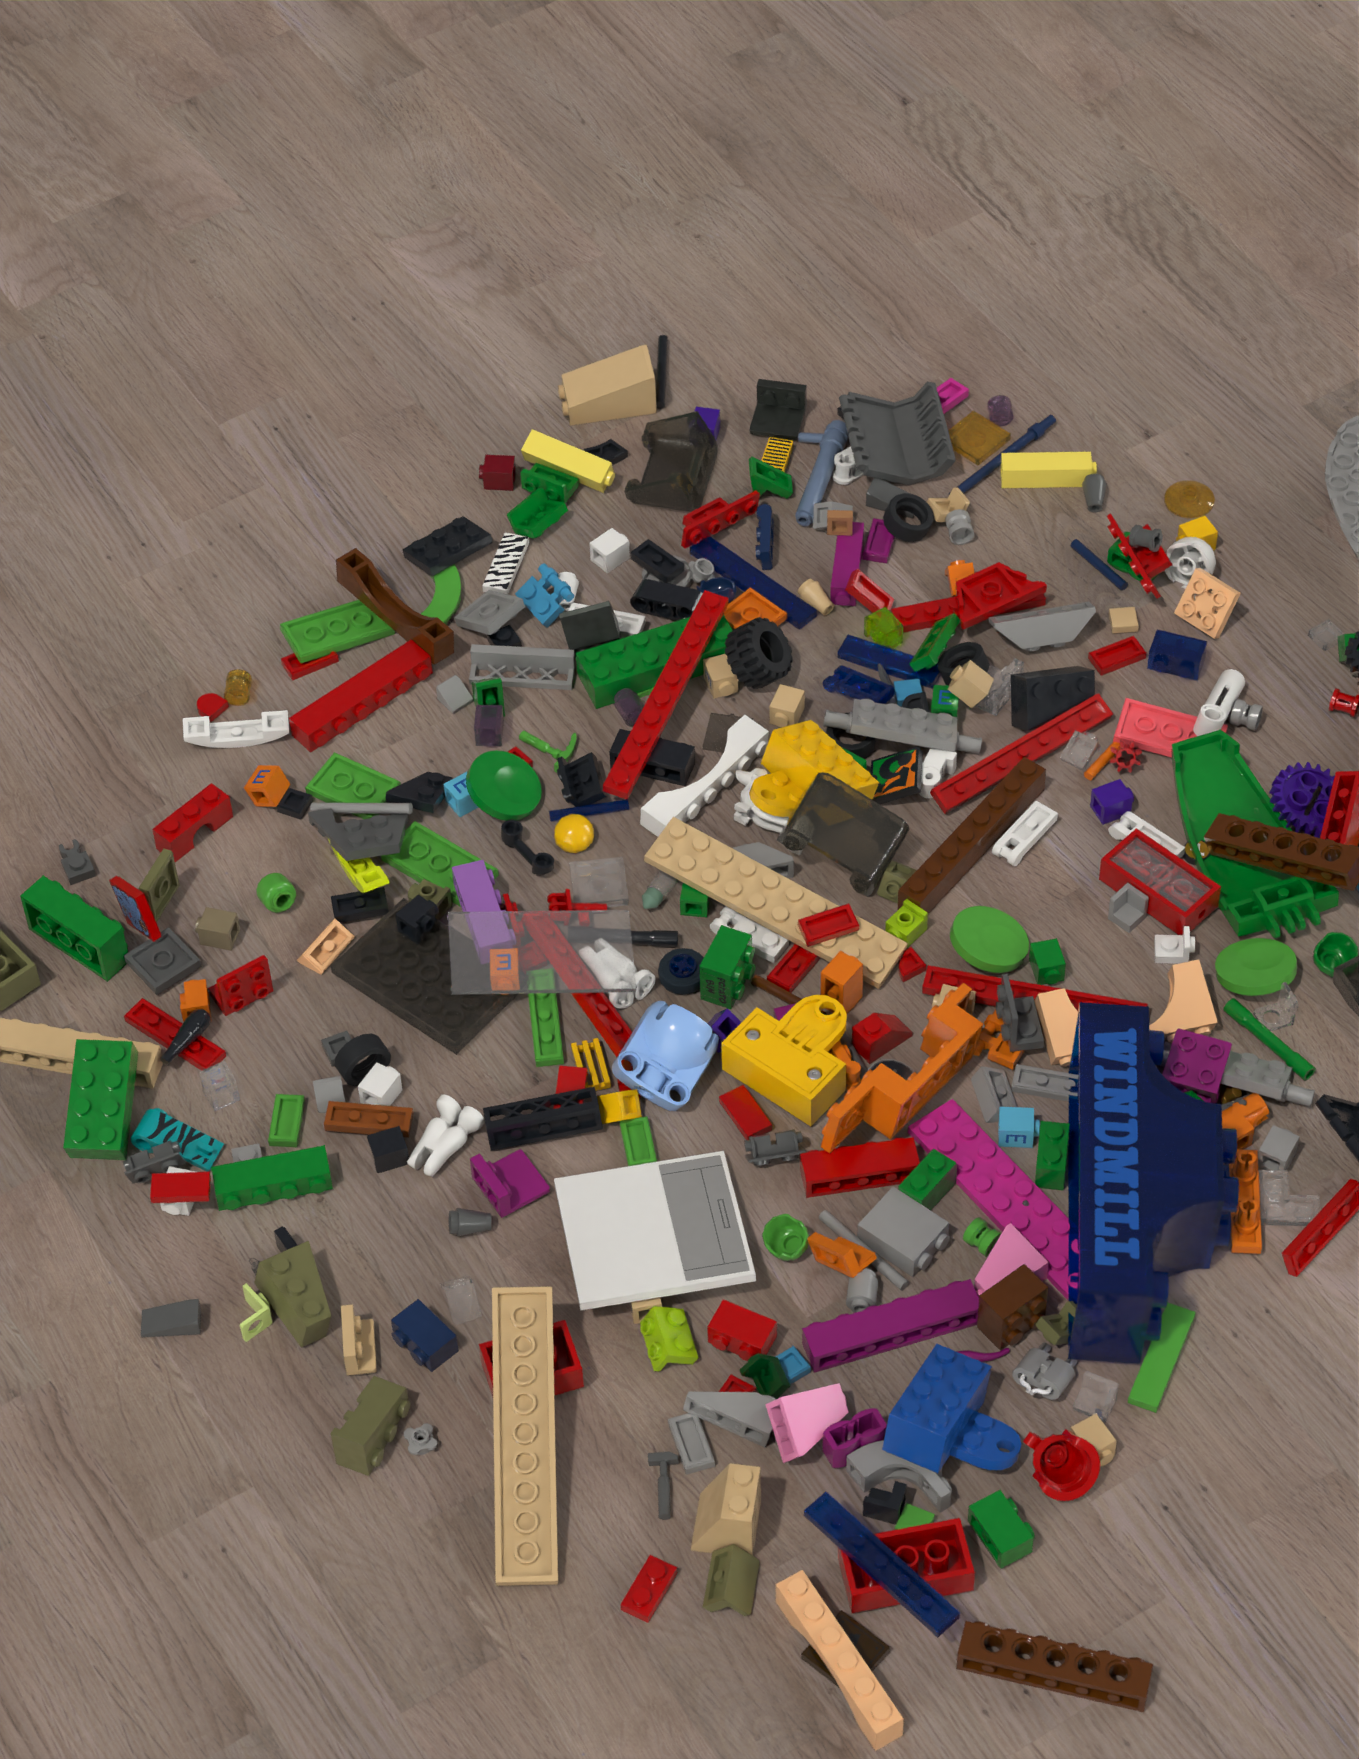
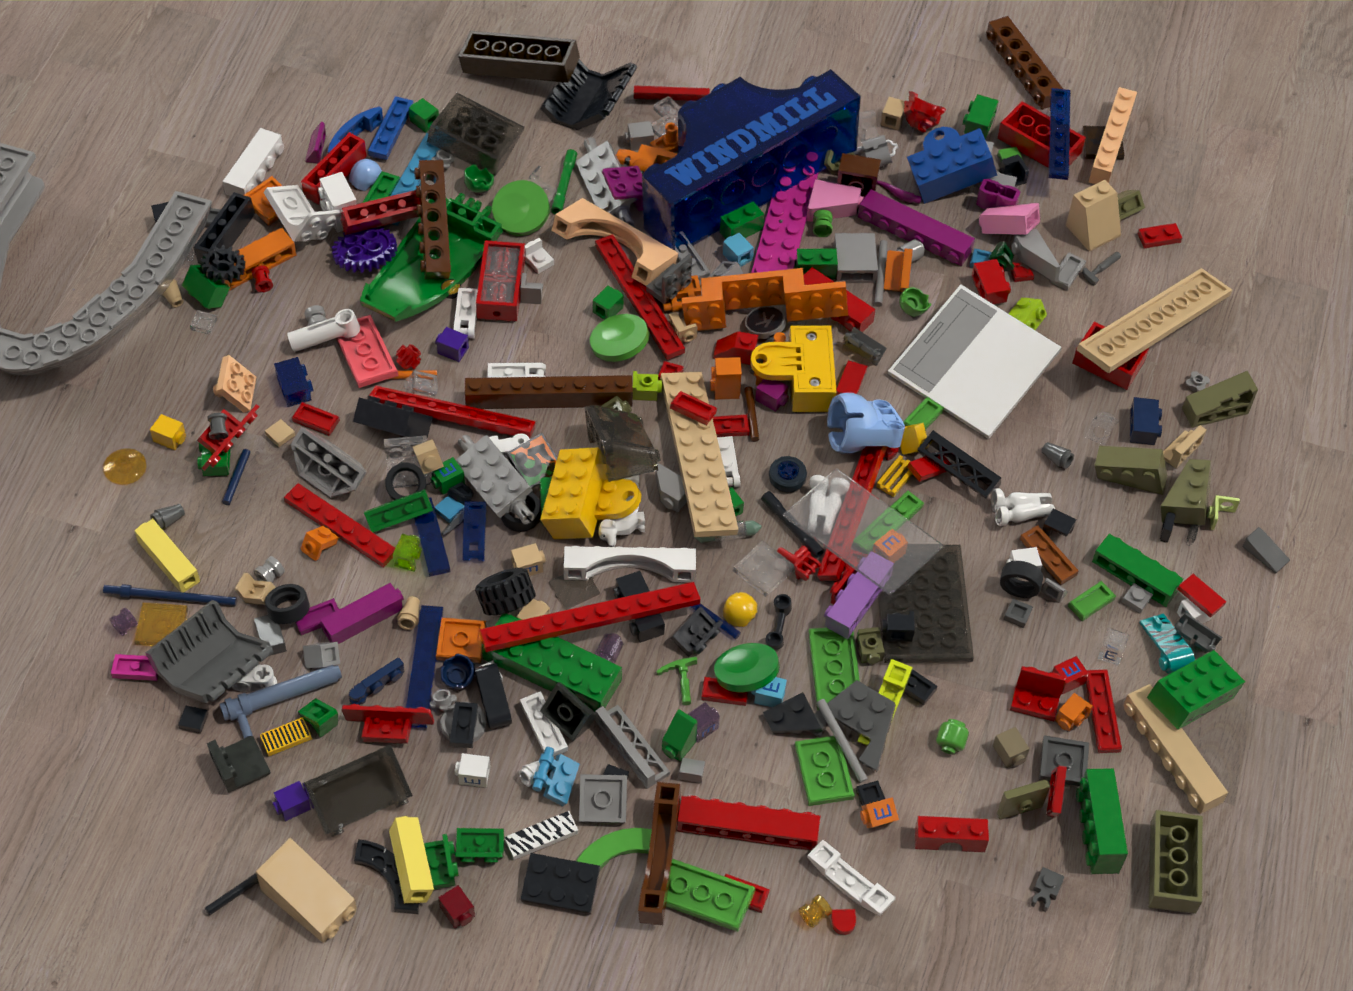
camera: 135 degrees left, 5 degrees up
(190, 1030) = (1097, 692): black piece -> none
(233, 1029) = (1073, 671): none -> red brick
(326, 947) = (958, 682): light nougat slope -> none
(379, 1265) = (1132, 467): none -> olive wedge
(508, 1182) = (1013, 454): magenta bracket -> none
(723, 1025) = (815, 417): dark purple brick -> none
(726, 967) = (770, 441): green brick -> none
(839, 522) = (340, 622): medium nougat plate -> none
(868, 592) = (385, 575): red tile -> none
(993, 592) = (328, 503): red wing -> none
(1186, 556) = (195, 414): white cylinder -> none

